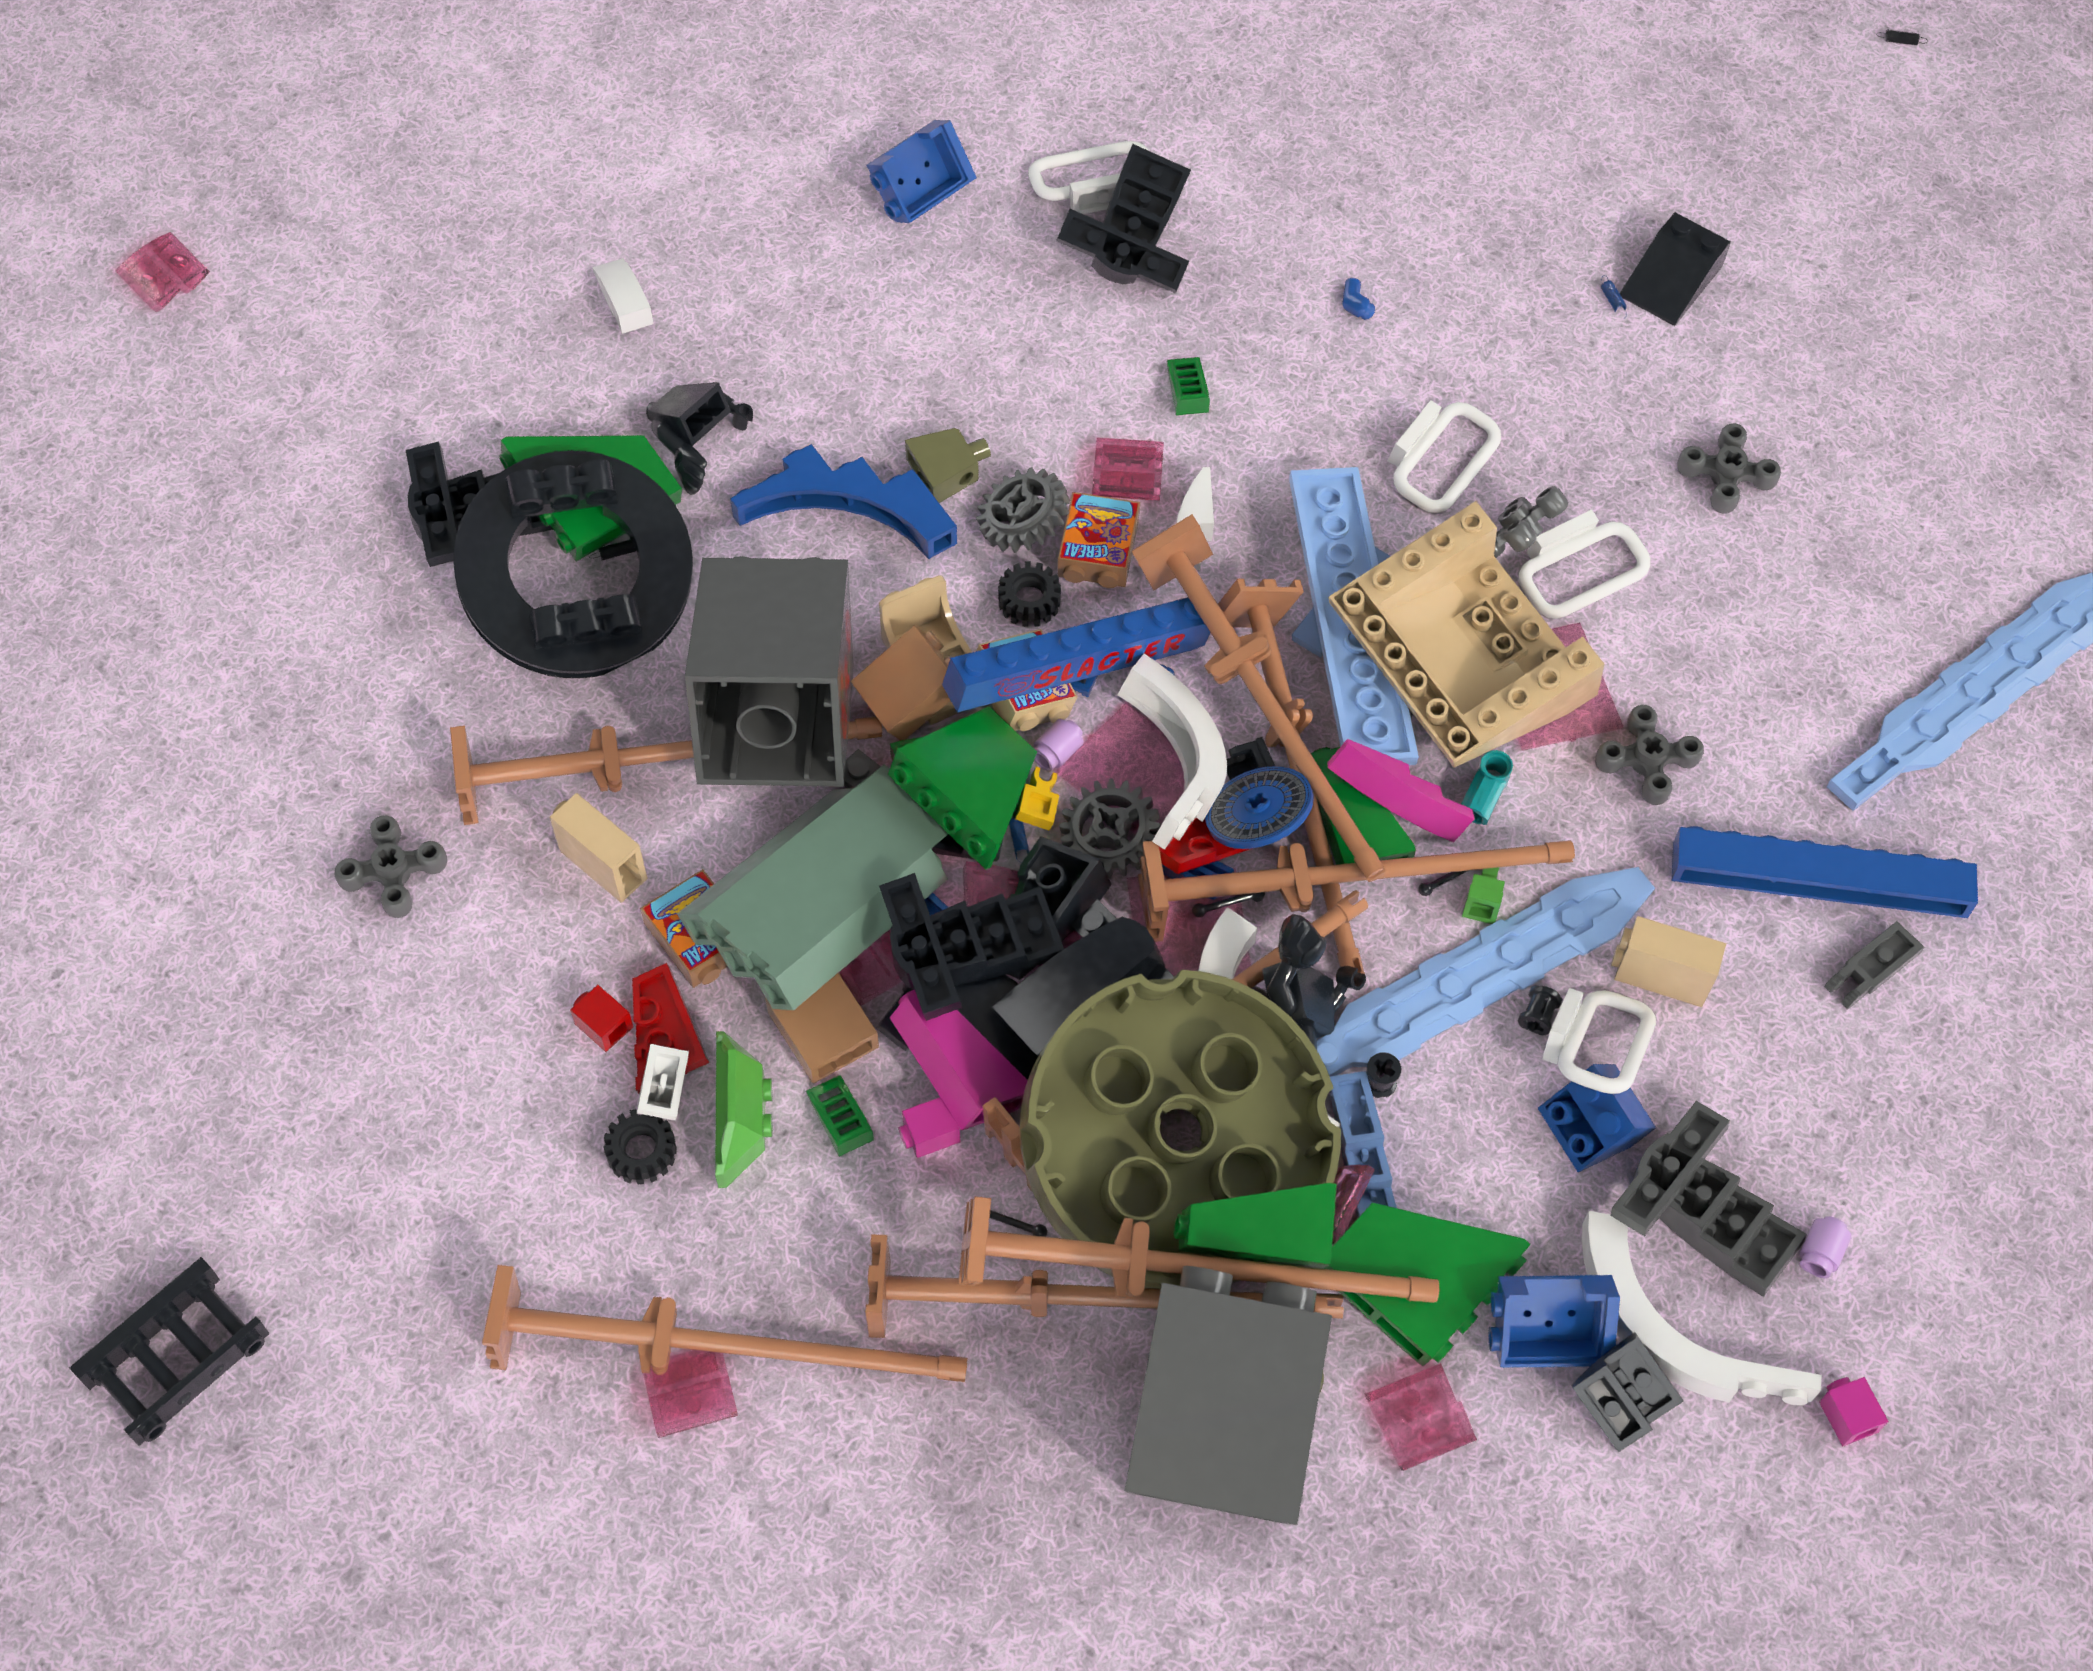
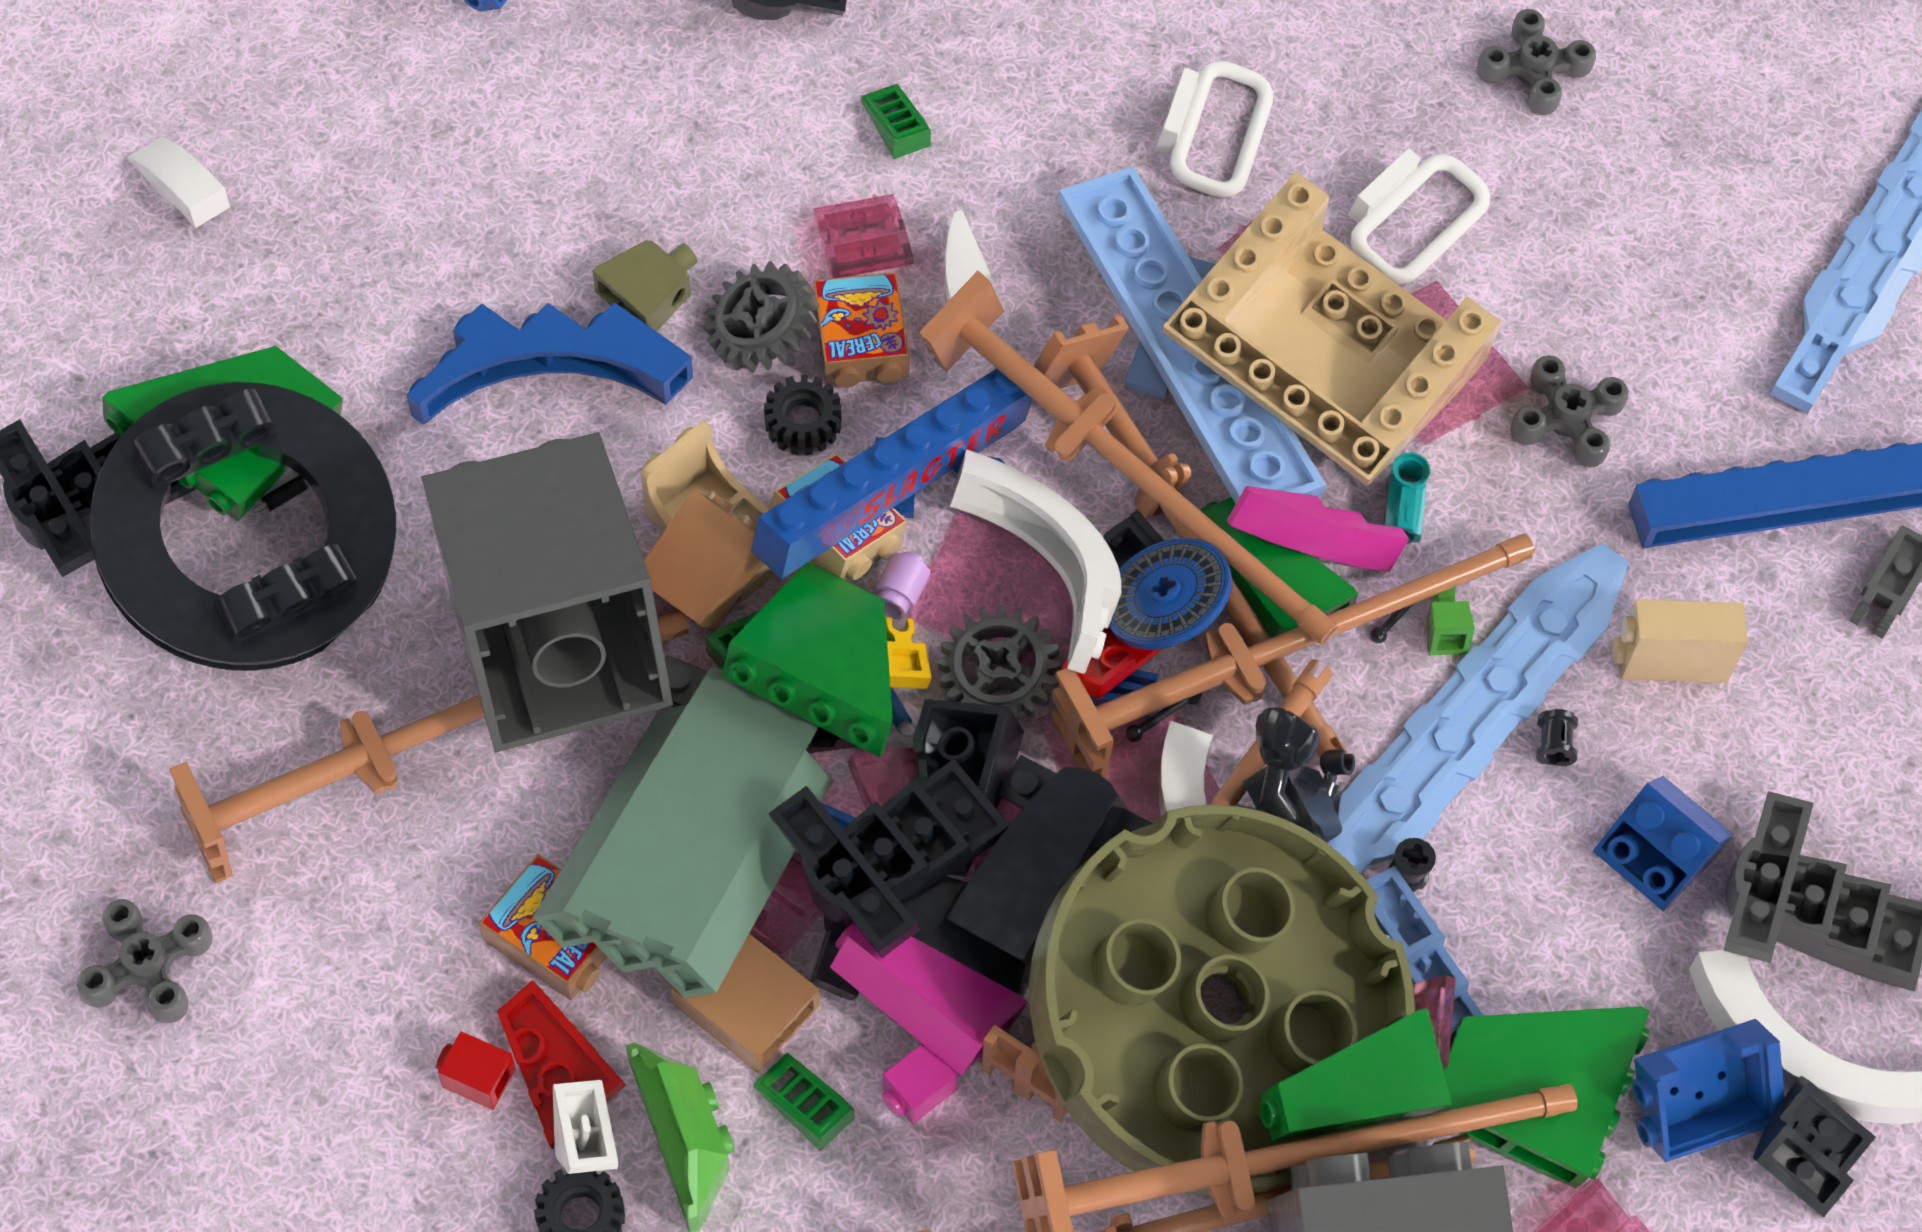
camera: 20 degrees left, 0 degrees up
(598, 847) = (400, 863): tan brick -> none
(688, 415) = (314, 313): black torso -> none
(1037, 1230) = (1087, 1167): black hinge -> none
(1521, 519) = (1341, 180): dark grey gear -> none
(1572, 1025) = (1602, 756): white bar -> none

